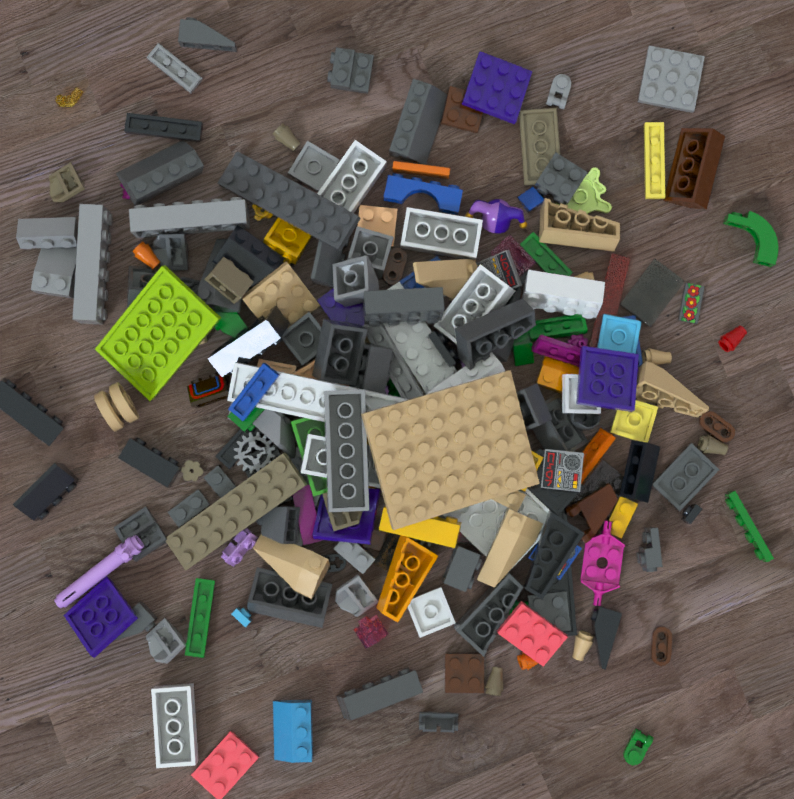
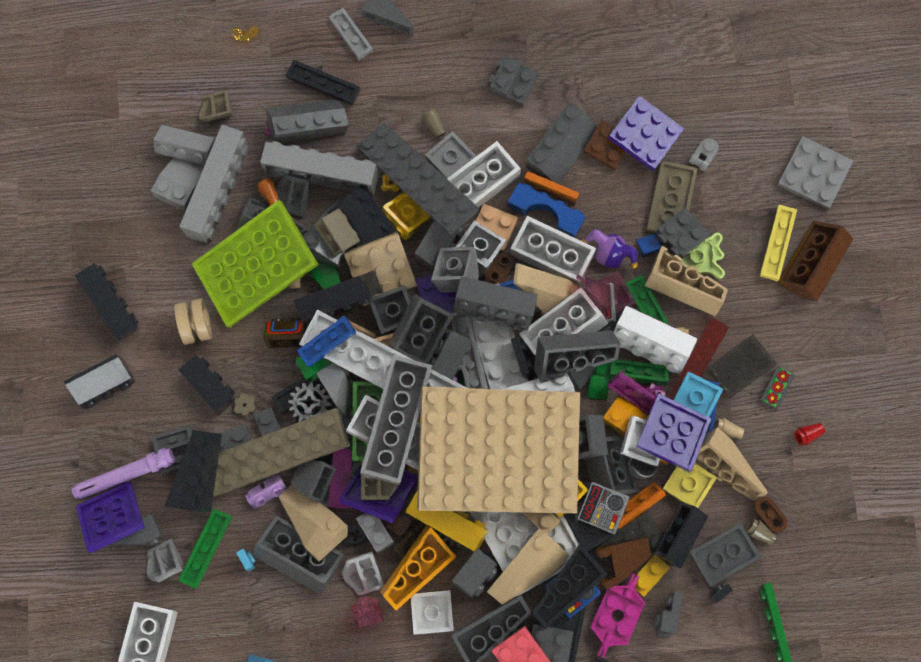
camera: 20 degrees right, 10 degrees down
(169, 552) = (197, 473): none -> black wedge
(496, 261) = (598, 290): none -> clear pink slope
(762, 232) = (865, 340): green arch -> none

